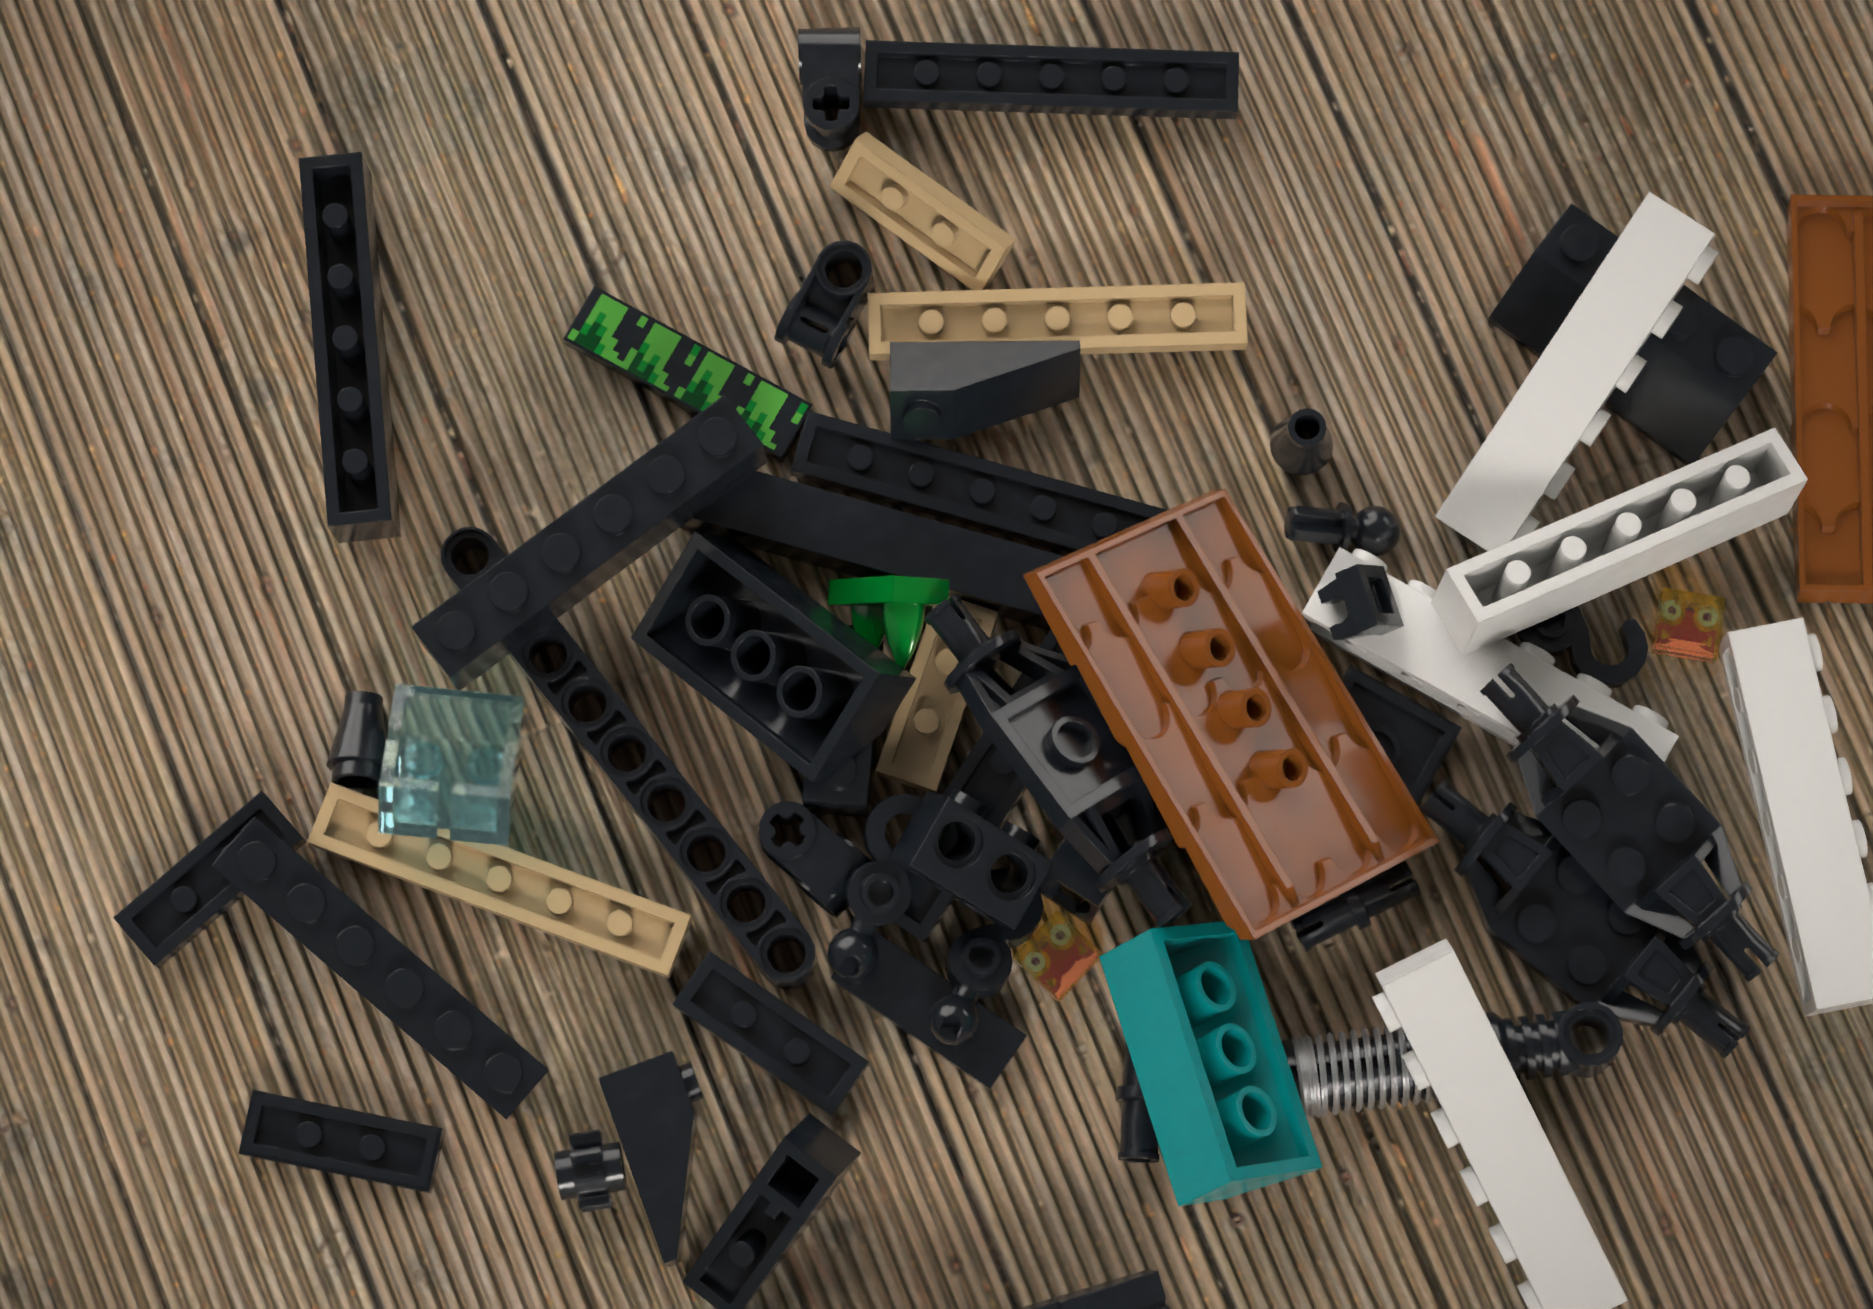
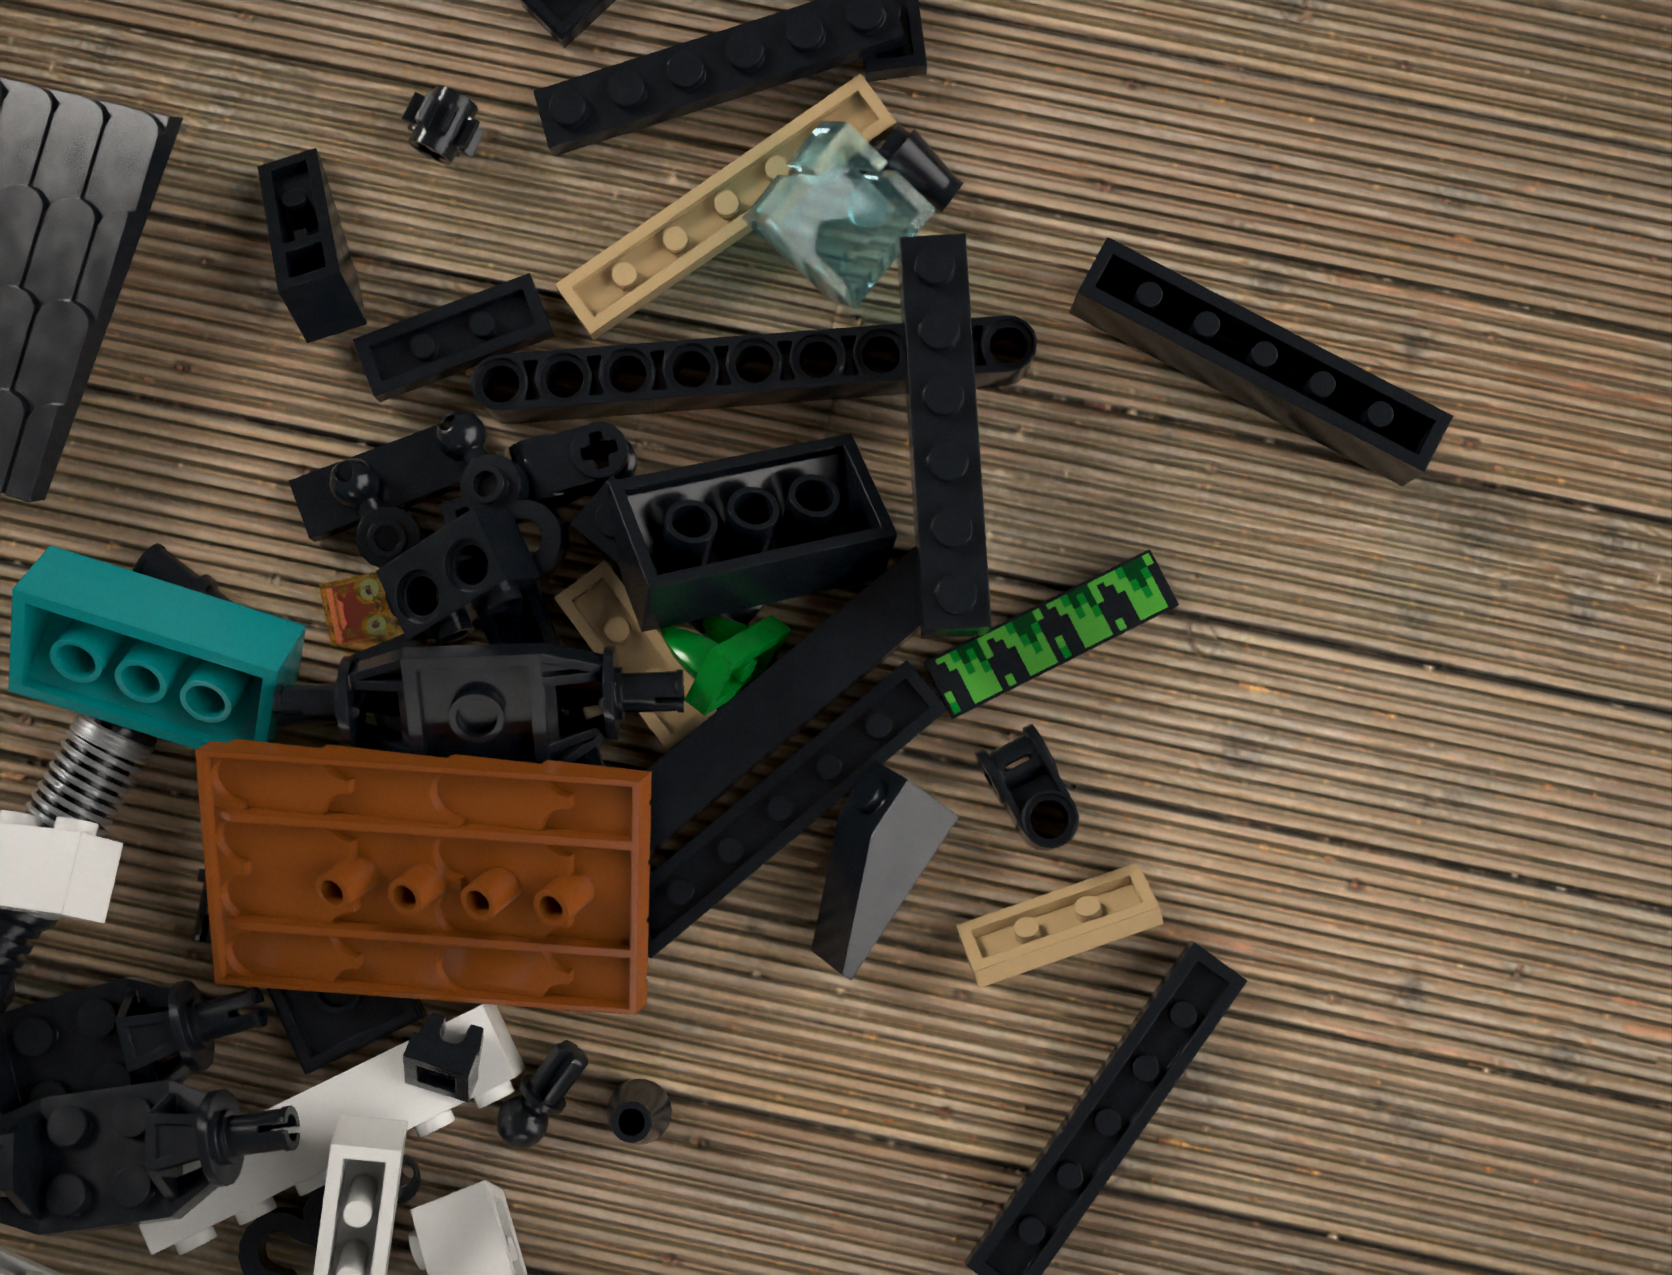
camera: 125 degrees right, 5 degrees up
(658, 1134) = (443, 196): black slope -> none
(829, 80) = (1235, 928): black piece -> none
(1100, 317) = (876, 996): tan plate -> none

